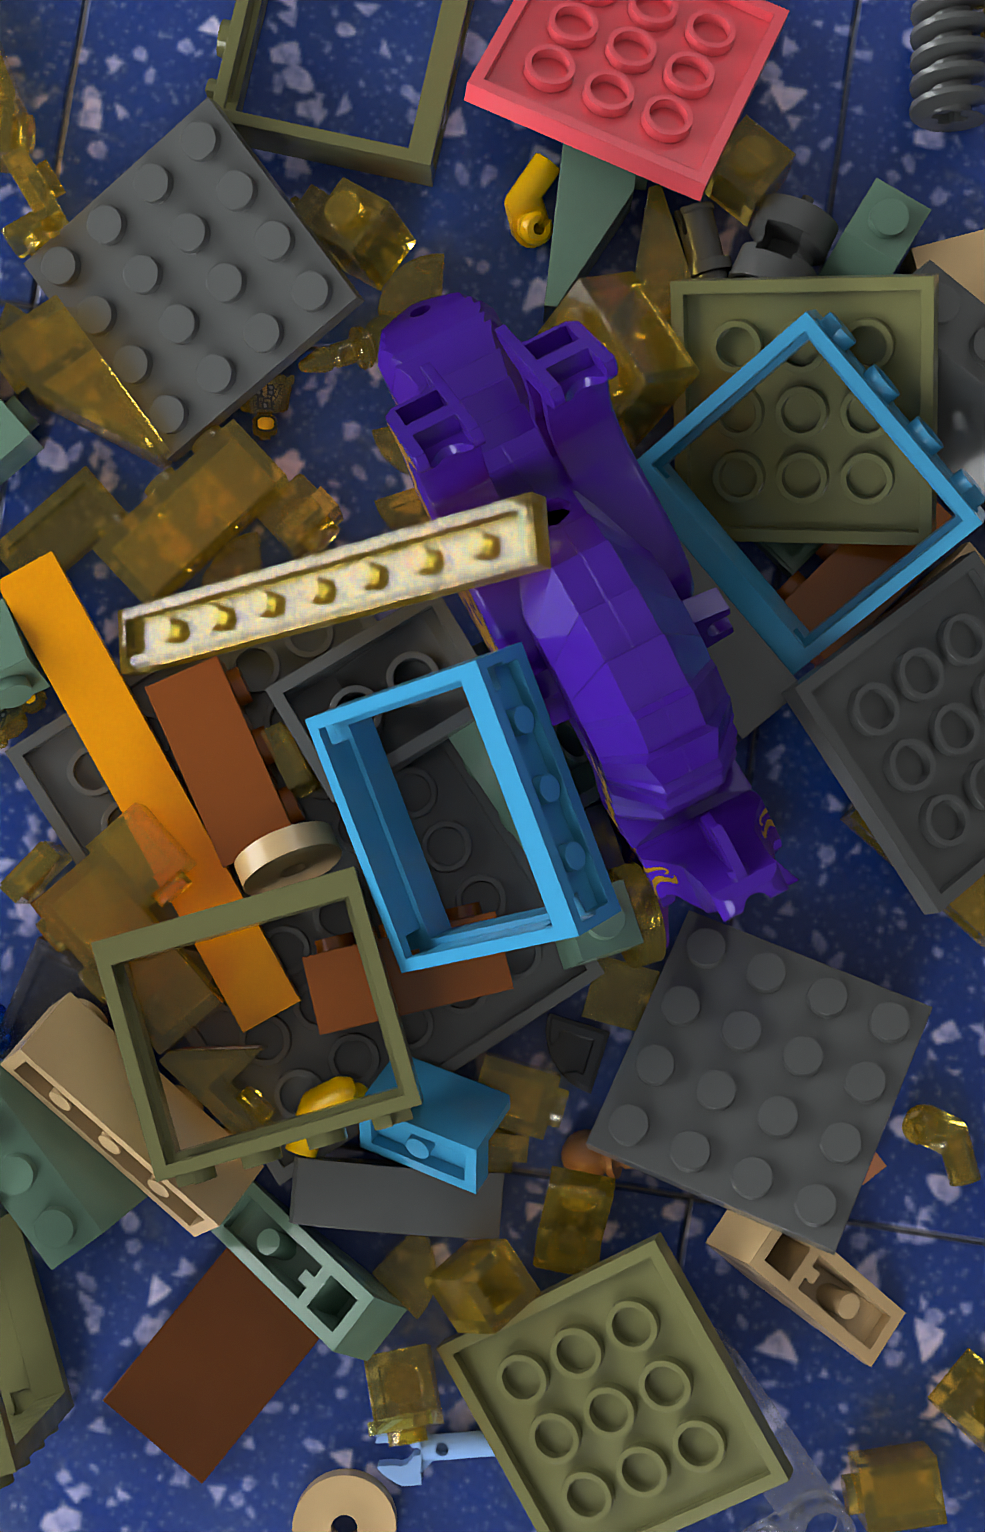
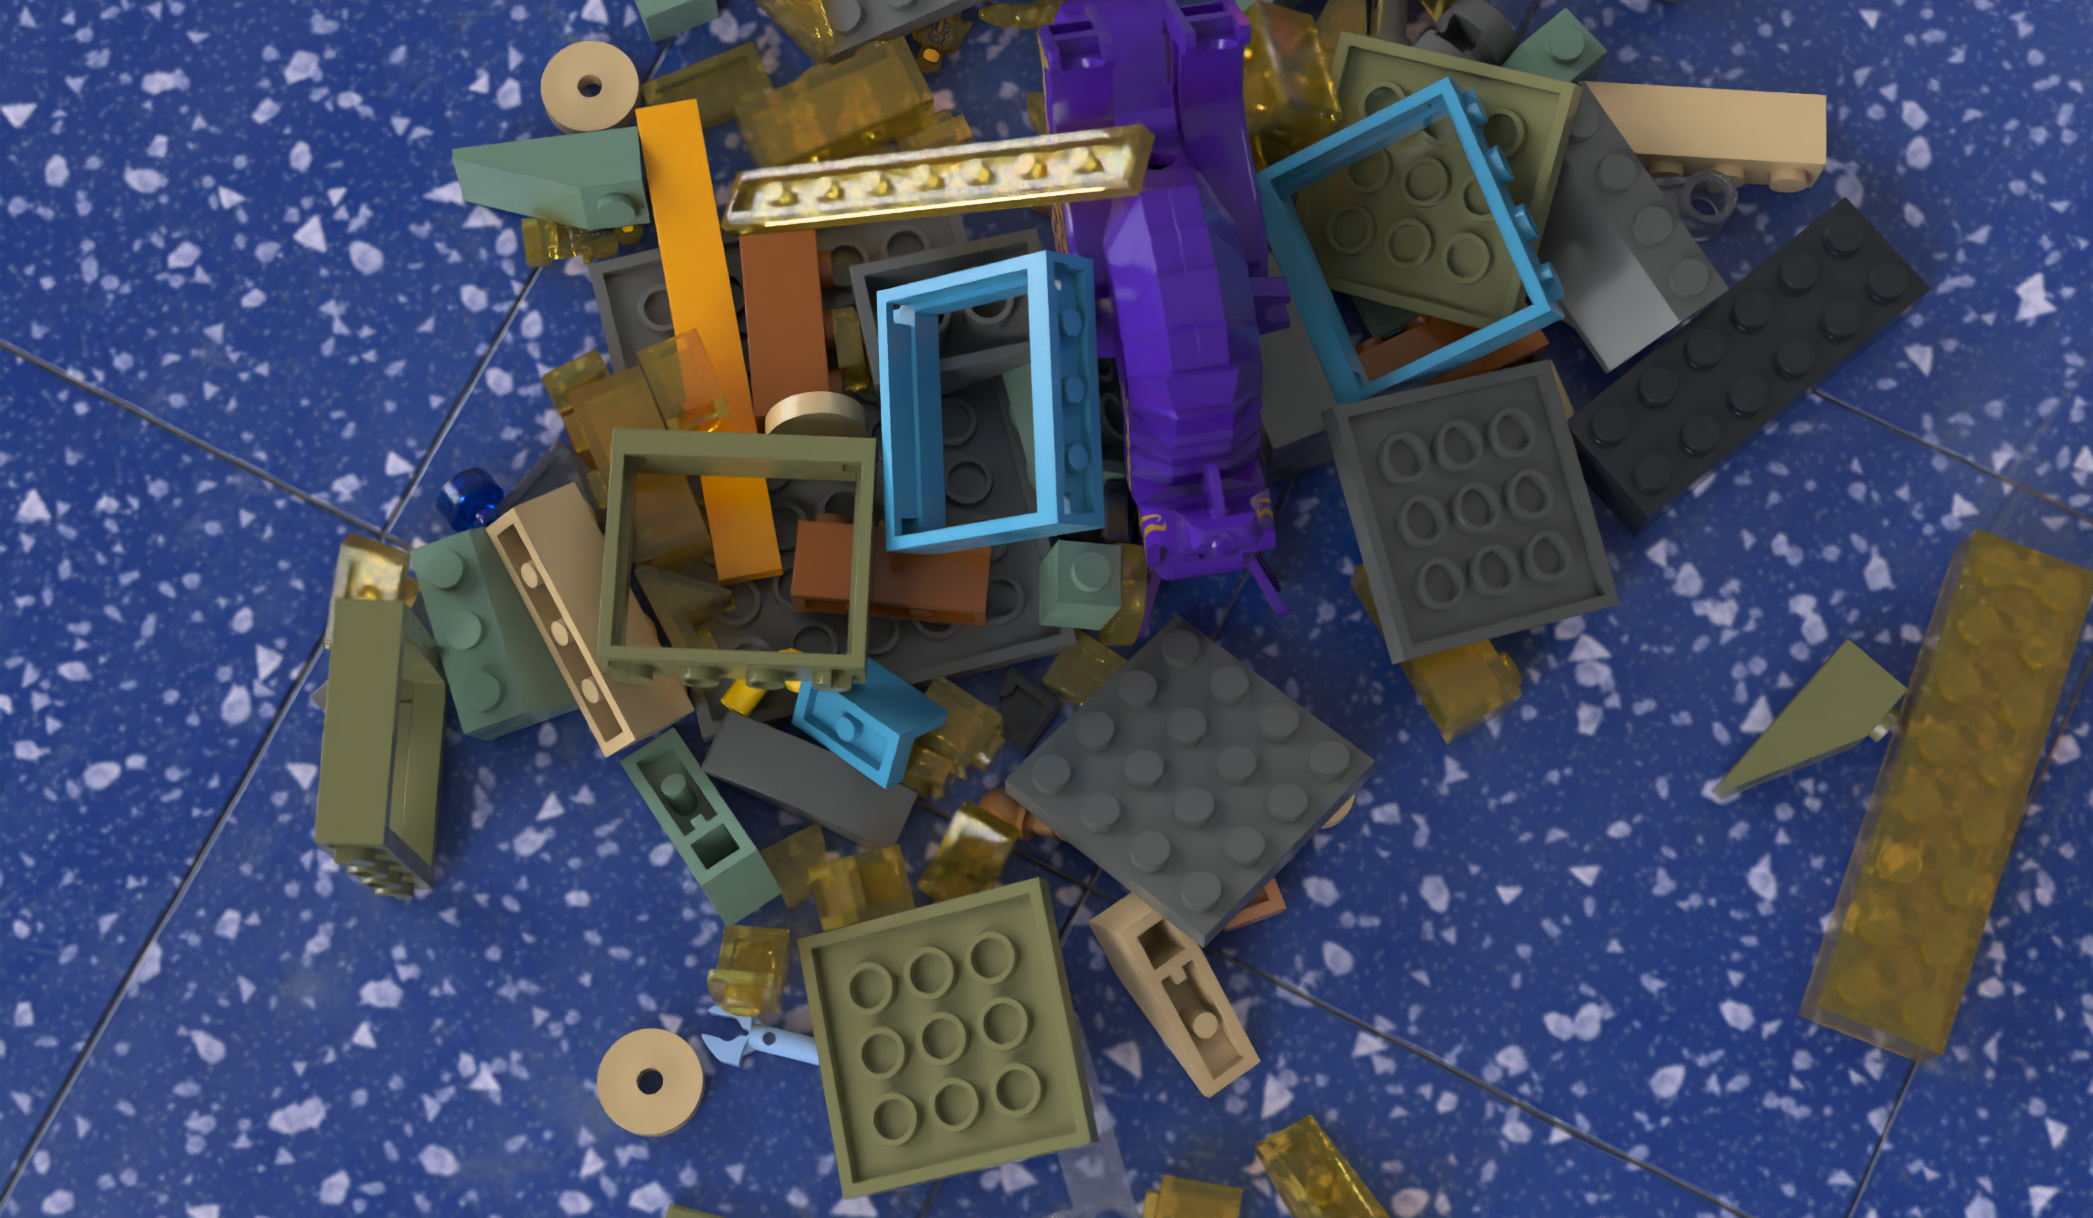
camera: 15 degrees right, 10 degrees down
(212, 1367) = (581, 889): reddish brown tile -> none
(946, 1135) = (1353, 905): clear yellow arm -> none

